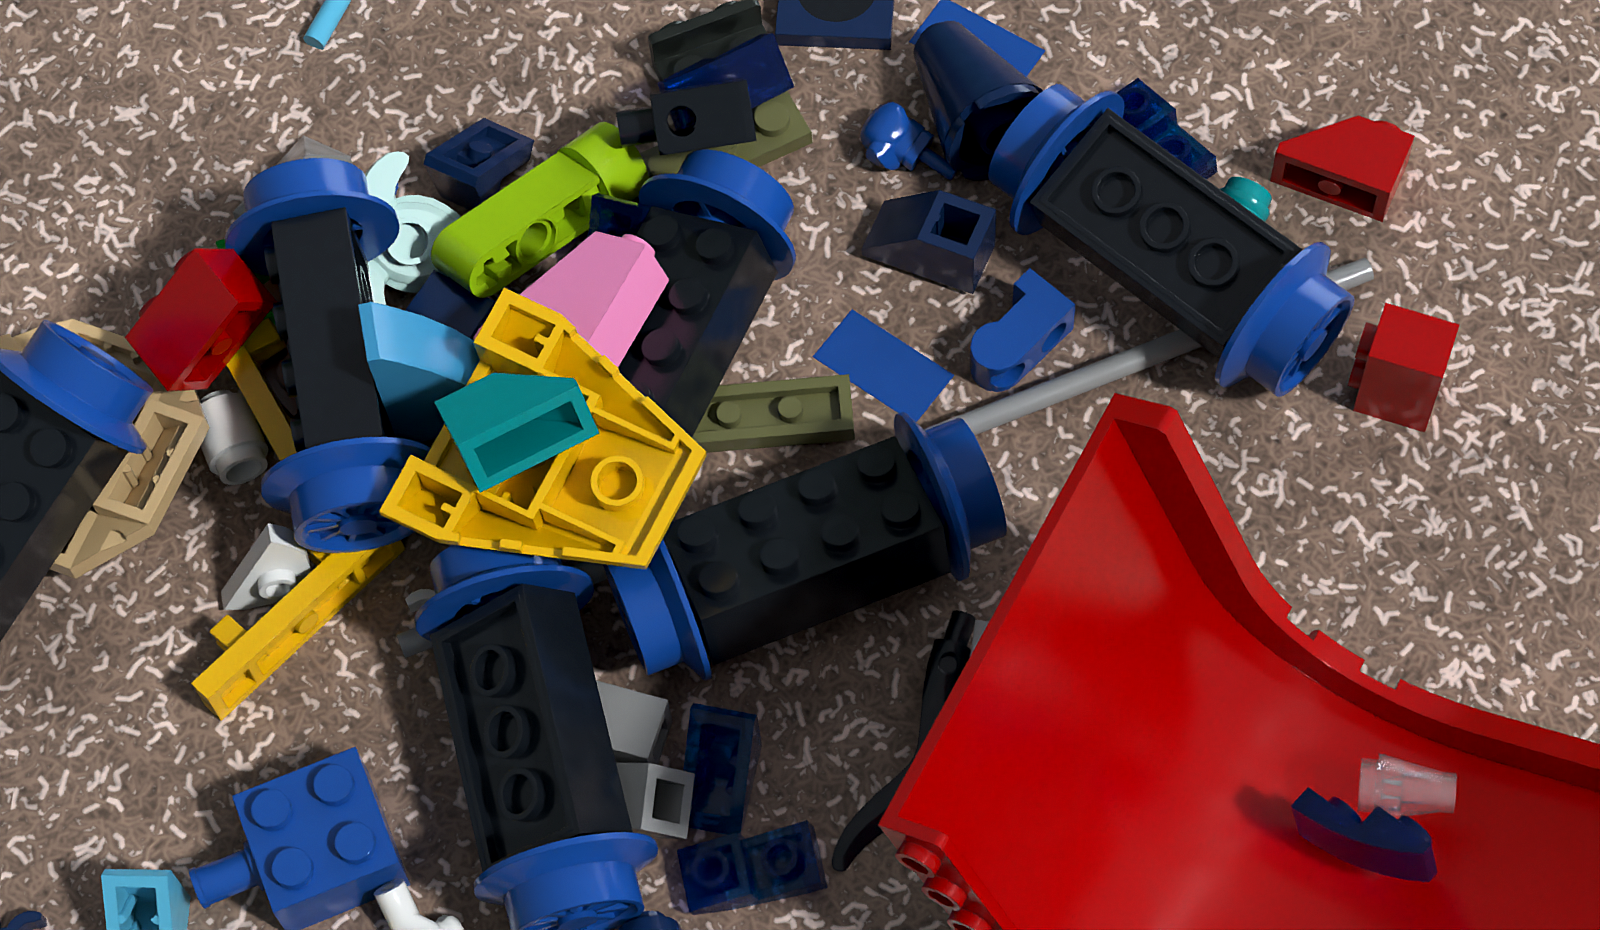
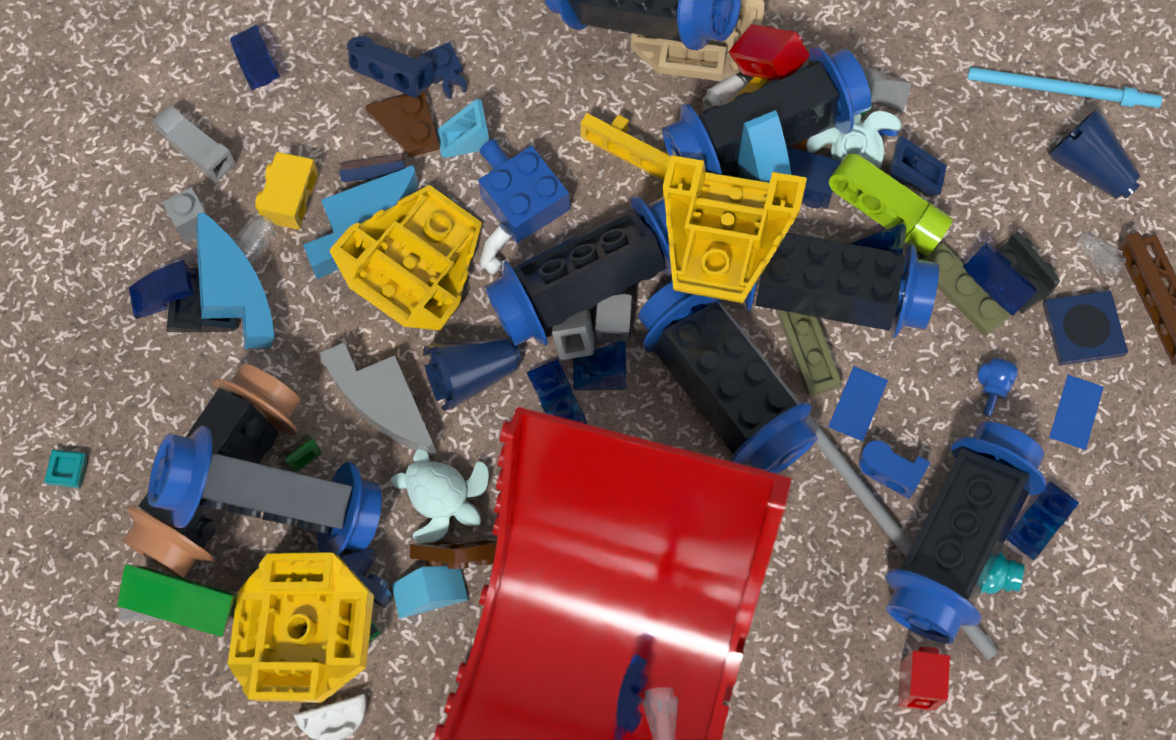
camera: 75 degrees right, 5 degrees up
(267, 571) = (652, 131): white plate -> none
(514, 423) = (726, 199): teal slope -> none
(603, 290) = (825, 233): bright pink slope -> none
(720, 113) = (964, 263): black torso -> none
(934, 237) = (937, 410): dark blue slope -> none
(969, 94) = (1036, 407): dark blue cone -> none
(1346, 164) = (1057, 633): red slope -> none

